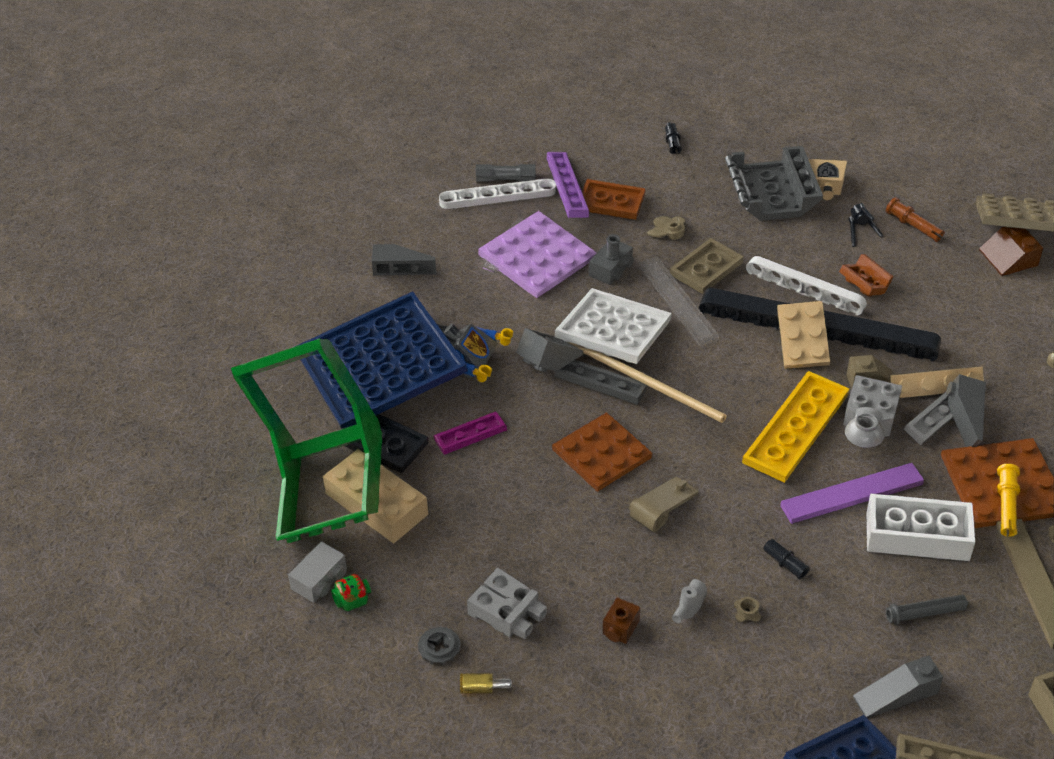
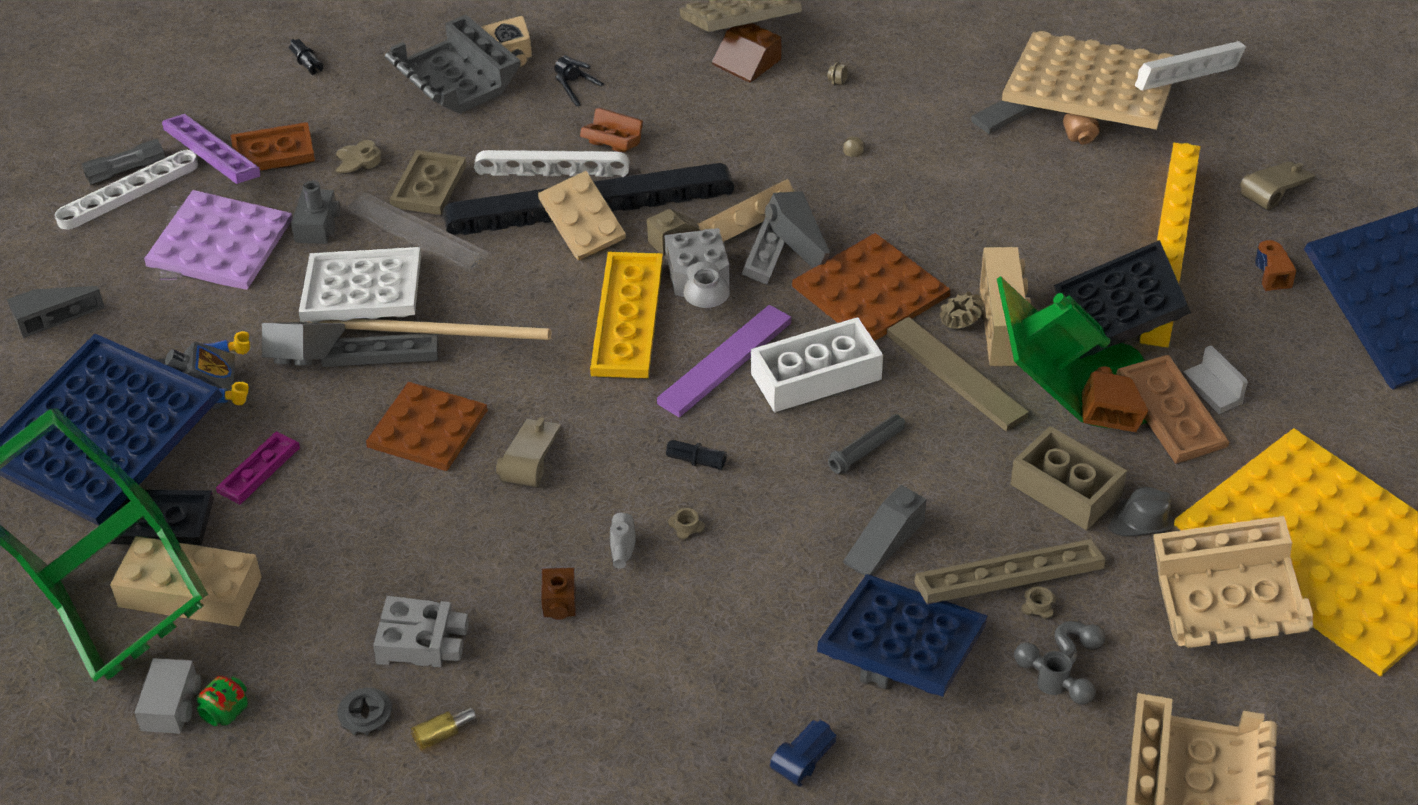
camera: 30 degrees left, 0 degrees up
(908, 215) = (617, 53): dark orange pin -> none
(1008, 490) = (884, 292): yellow pin -> none

